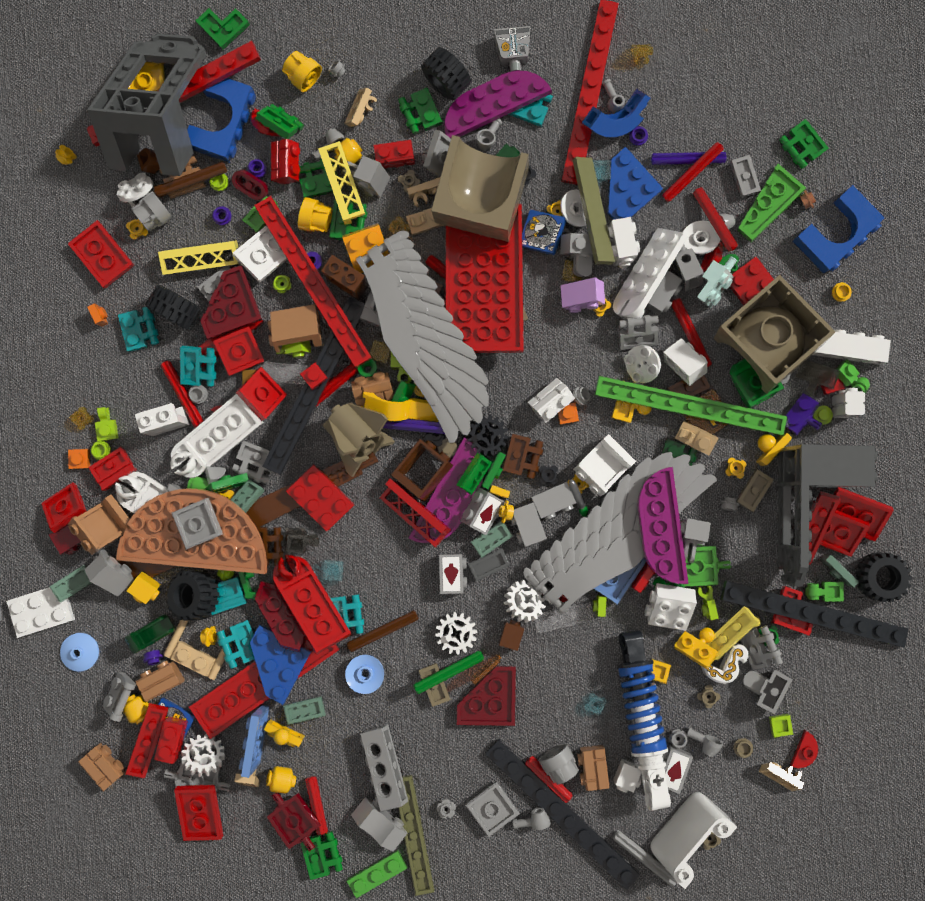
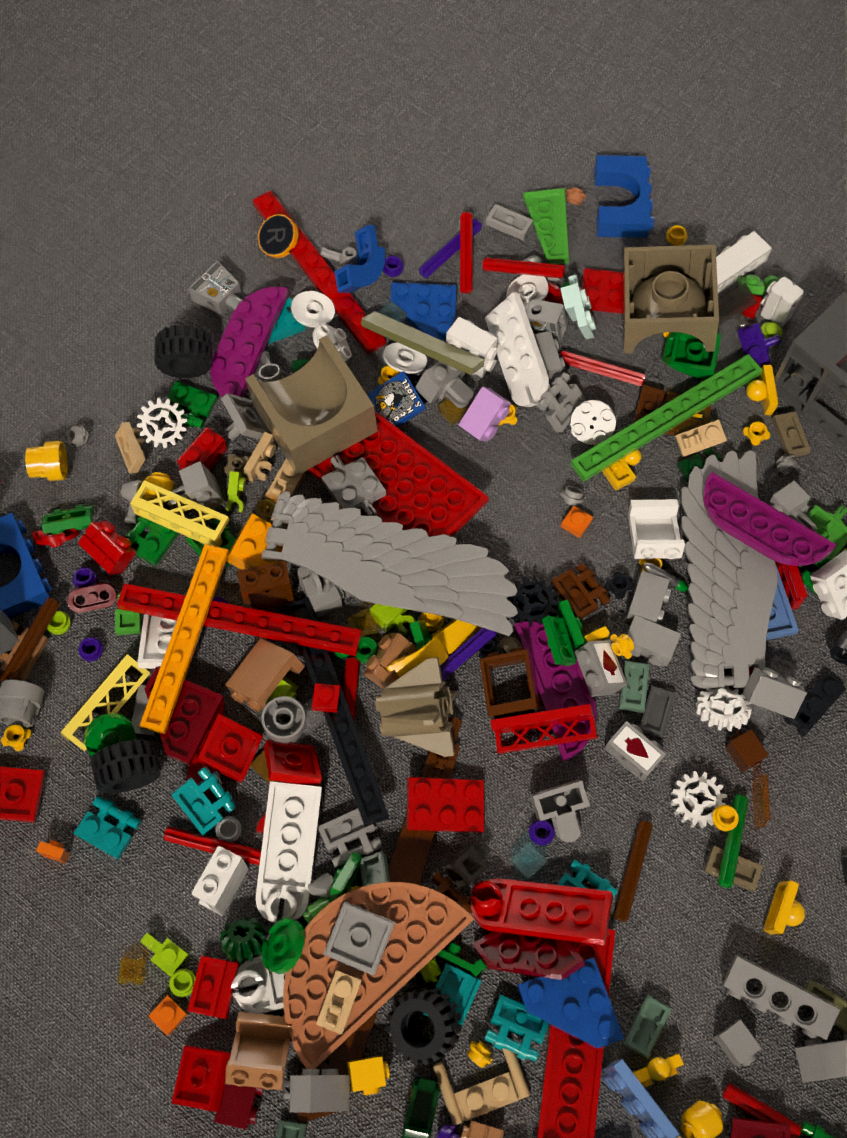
camera: 50 degrees left, 20 degrees down
(140, 460) = (242, 939): none -> dark green gear
(159, 542) = (339, 1002): none -> tan plate
(160, 486) = (283, 946): none -> green tile
(181, 280) = (106, 731): none -> green tile
(268, 361) = (279, 707): none -> light grey piece
(271, 263) = (184, 639): none -> light orange tile
(277, 283) = (209, 648): lime plate -> none
(314, 216) = (180, 565): yellow piece -> none
(339, 765) = (738, 1044): none -> light grey brick
(350, 562) = (549, 829): none -> dark purple plate
(361, 683) = (672, 918): light blue dish -> none
(379, 561) = (560, 805): none -> light grey brick
(394, 194) = (236, 485): none -> lime plate
(399, 112) = (151, 420): none -> white gear
(436, 731) = (784, 909): none -> yellow tile
(456, 265) = (354, 485): none -> light grey plate
(456, 657) = (725, 818): none -> yellow plate
(490, 700) = (796, 829): dark red plate -> none
(545, 161) = (337, 337): none -> white plate
(551, 400) = (553, 521): white brick -> none
(558, 623) = (774, 692): none -> light grey brick
(562, 112) = (312, 302): none -> white dish
(580, 650) = (817, 703): none -> black plate
(587, 43) = (277, 236): none -> black tile
(599, 606) = (787, 647): lime plate -> none
(641, 50) = (328, 206): clear yellow tile -> none
(685, 361) = (625, 387): white brick -> none
(807, 139) = (526, 158): green plate -> none

